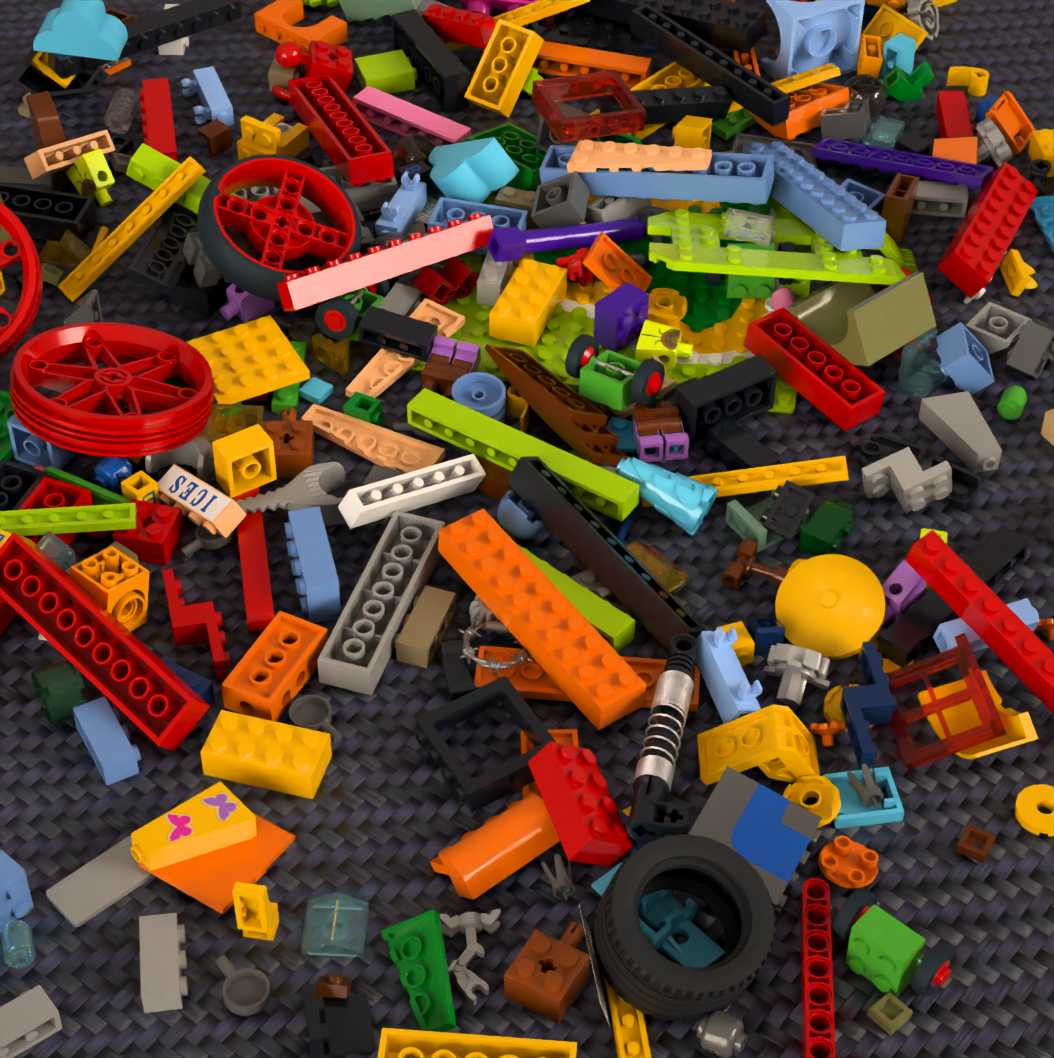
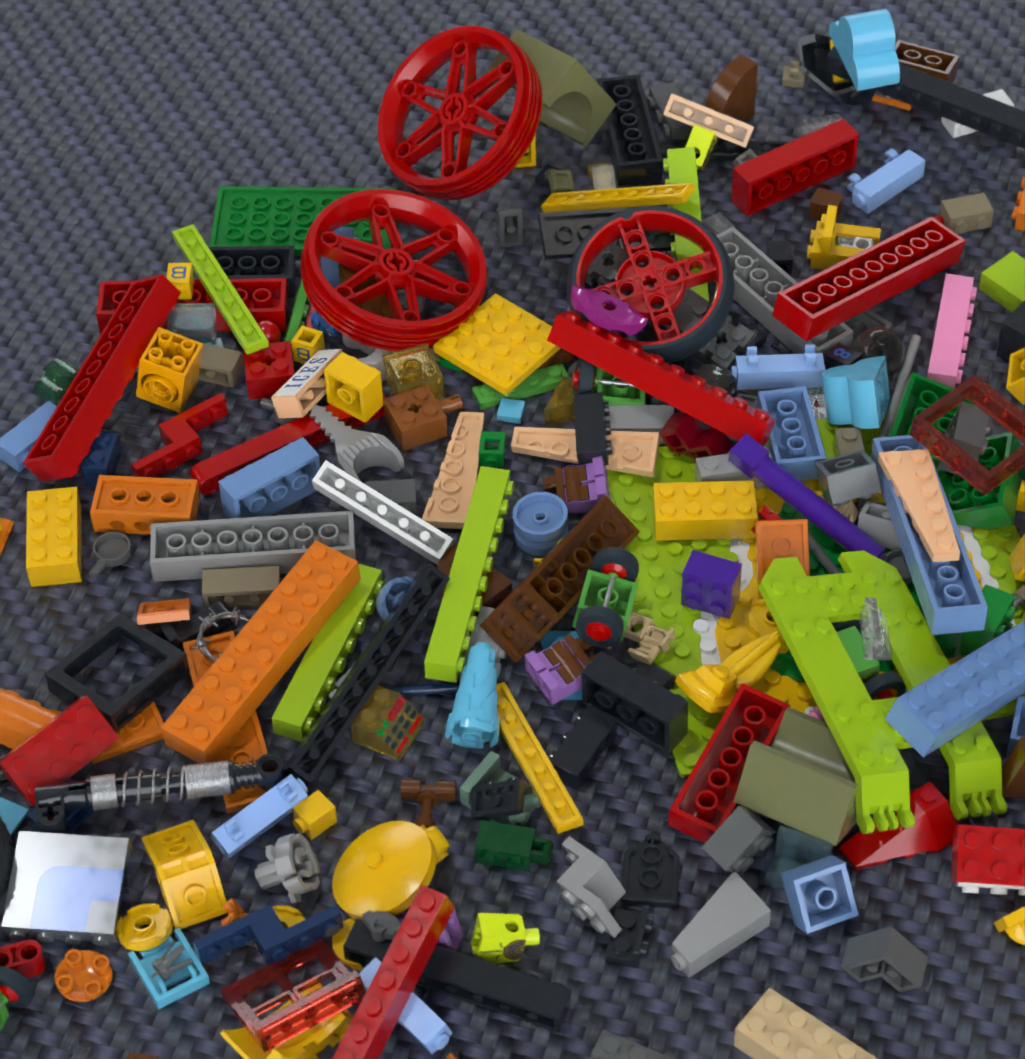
camera: 70 degrees right, 5 degrees up
(295, 253) = (622, 318): none -> magenta piece
(318, 60) = (987, 233): red brick -> none
(428, 688) = (164, 611): none -> orange tile
(663, 342) = (697, 631): neon yellow torso -> none
(716, 336) = (716, 684): none -> yellow piece
(765, 632) = (337, 830): dark blue slope -> none
(901, 615) = (381, 925): none -> dark grey piece
(902, 378) = (739, 840): none -> dark grey brick
(996, 326) = (893, 906): light grey slope -> none
(1012, 402) = (792, 962): bright green brick -> none

